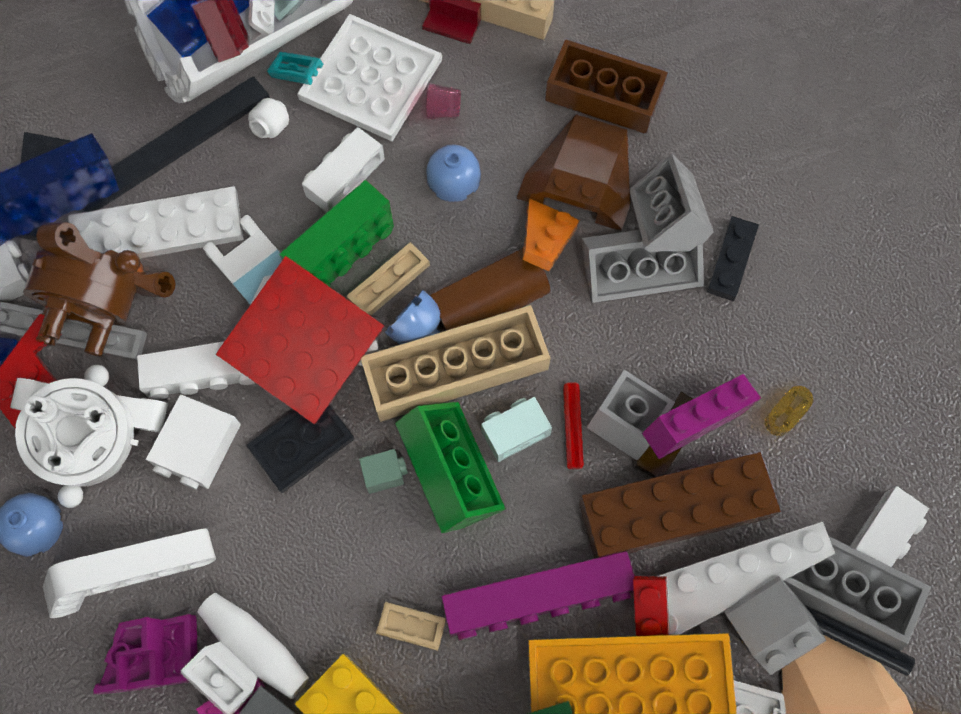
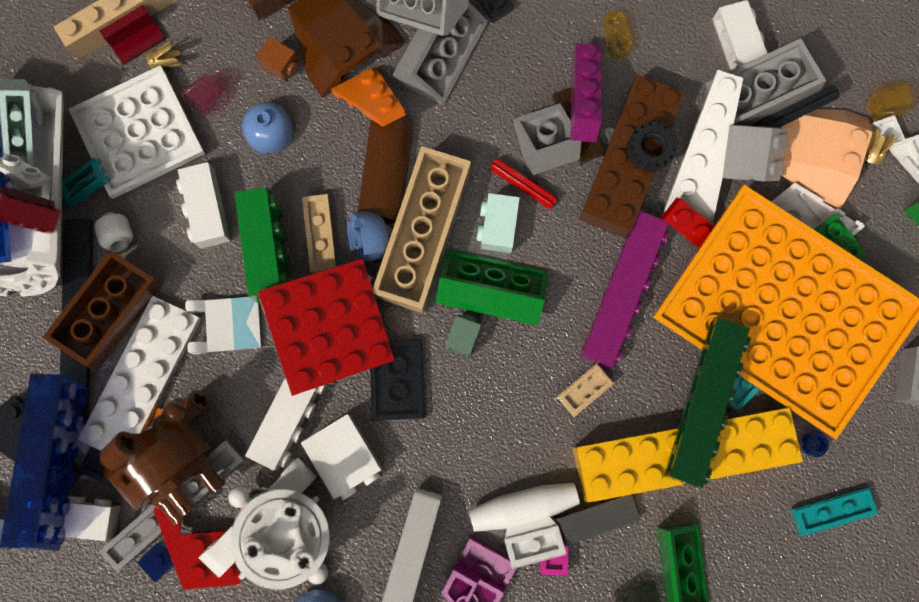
camera: 55 degrees left, 10 degrees up
(190, 155) = (102, 311): none -> reddish brown brick
(447, 48) = (162, 57): none -> pearl gold piece
(520, 138) = (278, 59): none -> dark orange brick
(708, 500) = (659, 134): none -> black tyre

